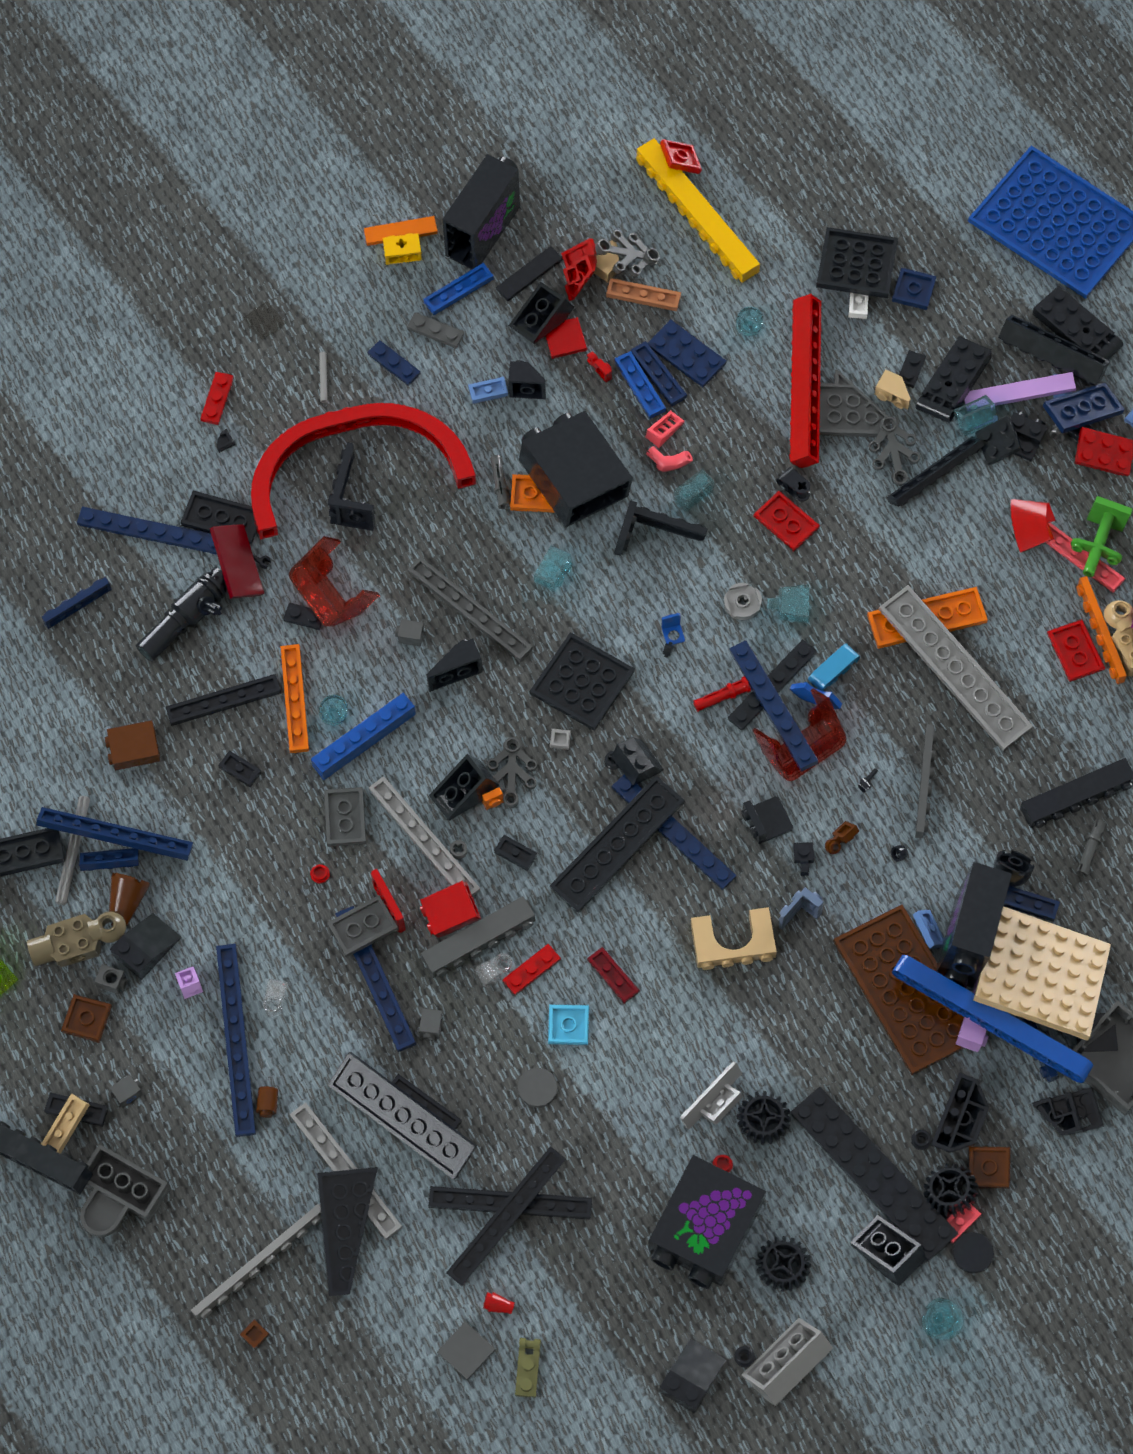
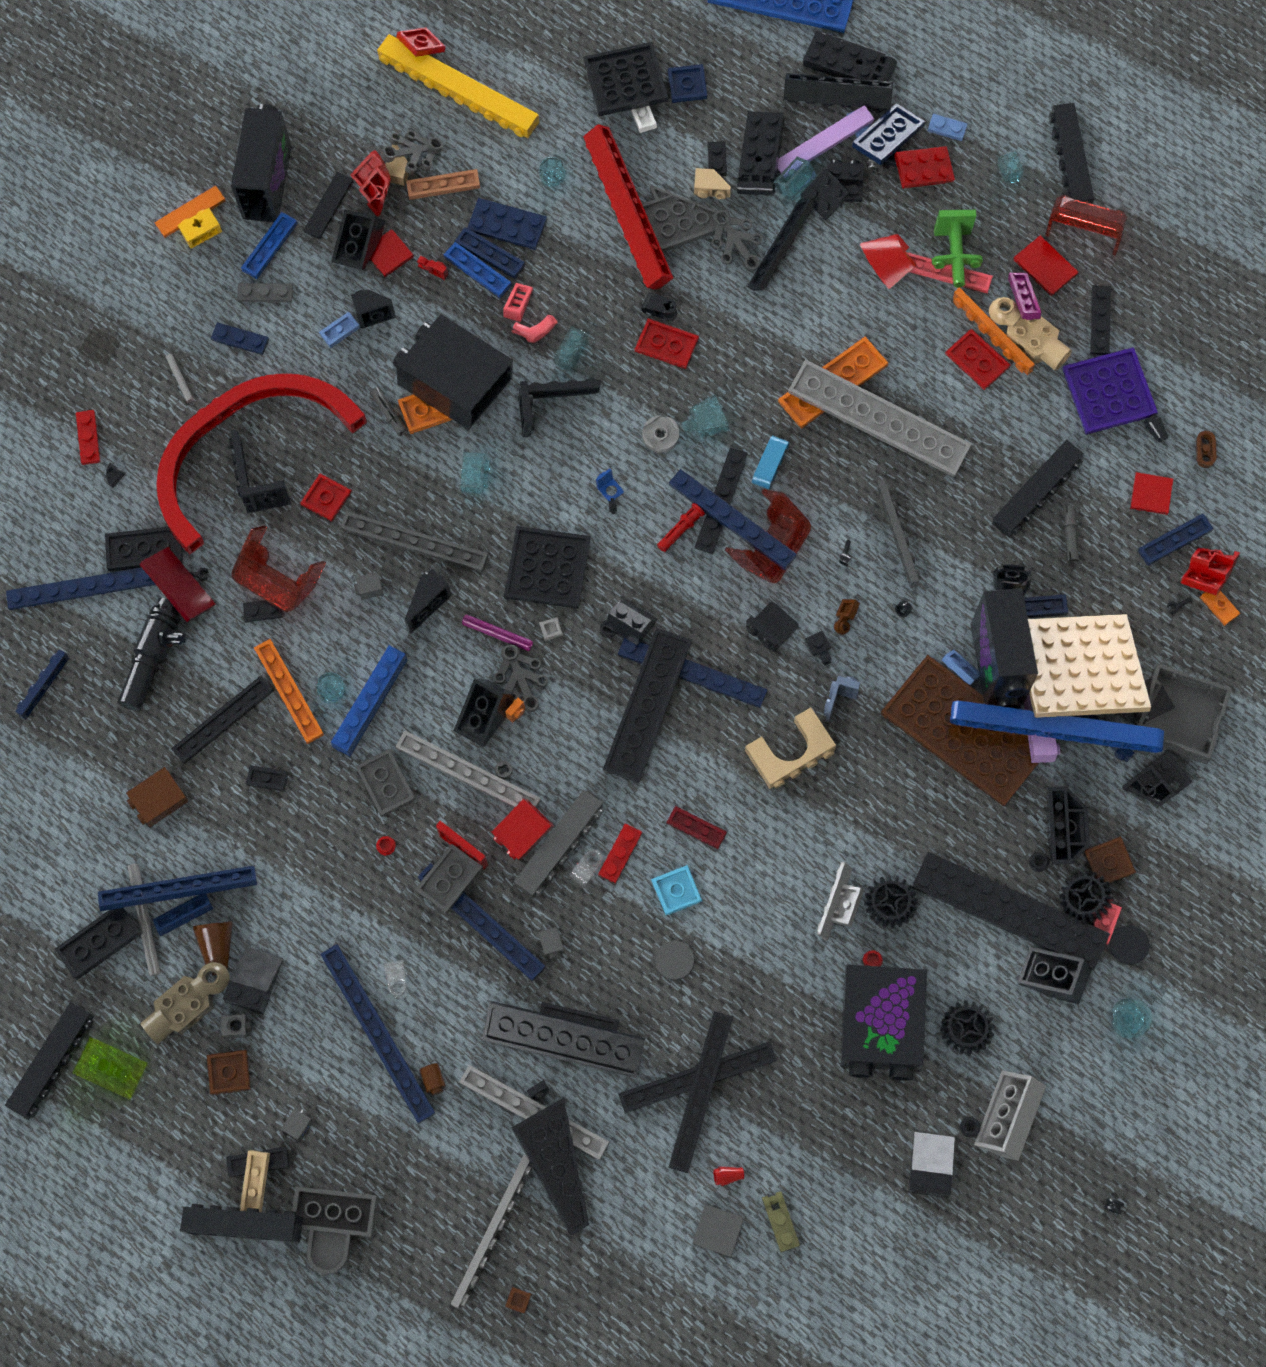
camera: 20 degrees left, 5 degrees up
(189, 982) = (309, 998): lavender slope -> none
(358, 1152) = (538, 1091): none -> black plate
(407, 537) = (326, 497): none -> red tile
(509, 722) = (497, 632): none -> magenta axle
(515, 852) = (557, 751): black plate -> none
(803, 691) = (755, 495): blue tile -> none

